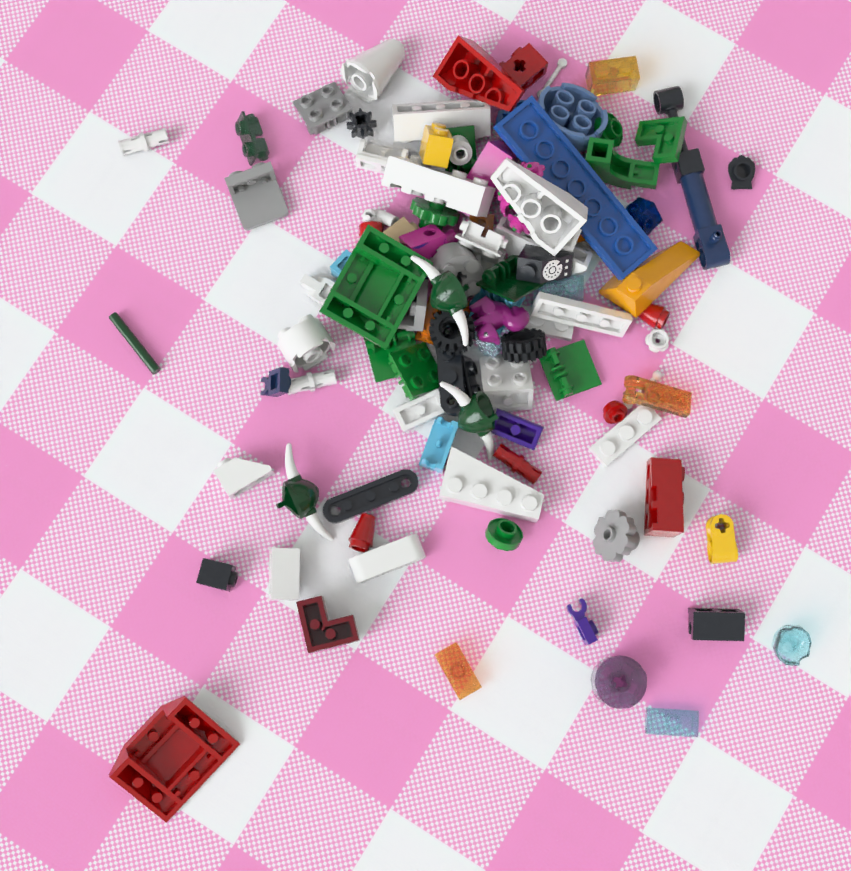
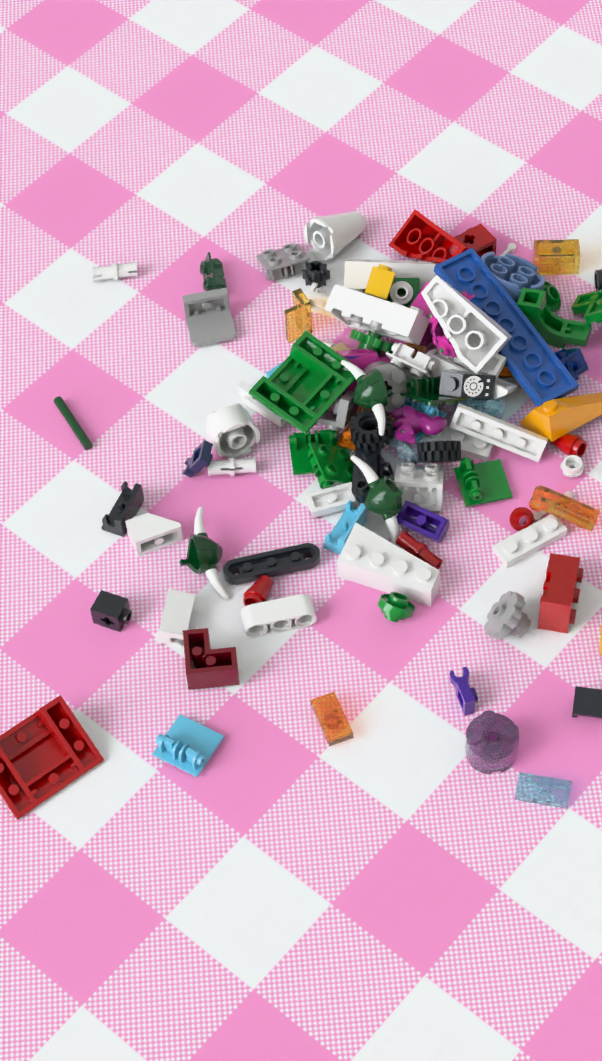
camera: 15 degrees right, 25 degrees down
(207, 448) = (124, 509): none -> black hinge
(320, 718) = (187, 745): none -> medium azure hinge
(356, 189) = (299, 317): none -> clear yellow panel

